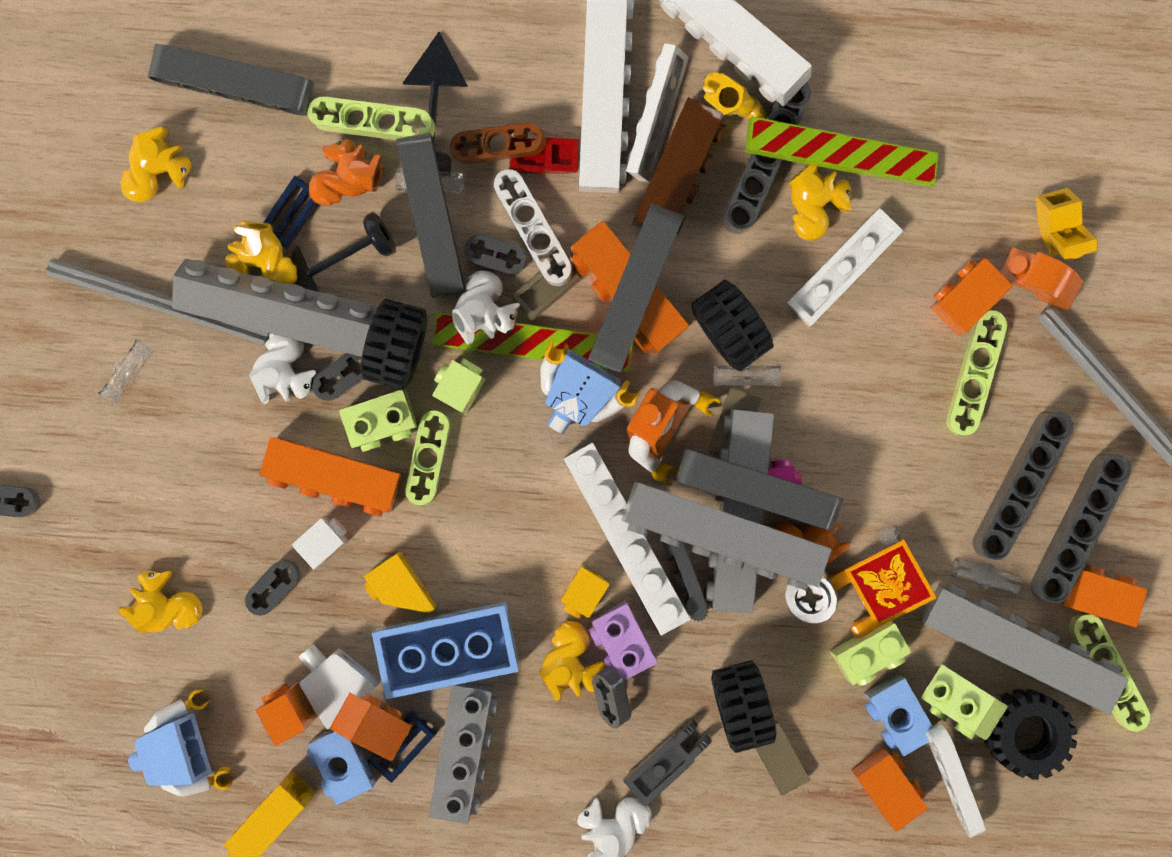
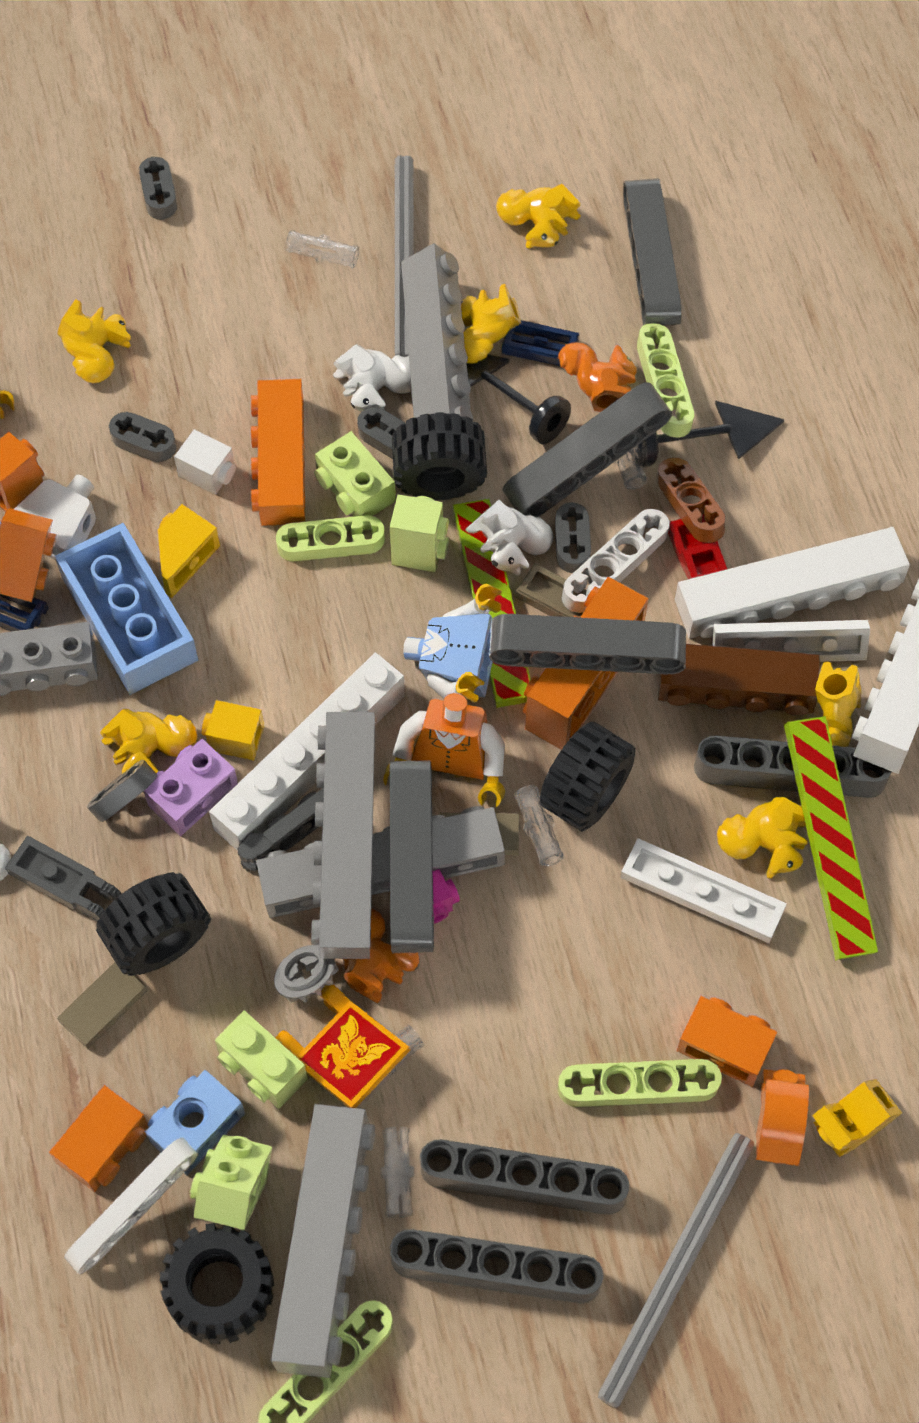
camera: 65 degrees right, 25 degrees down
(1106, 597) = (420, 1326): orange brick -> none

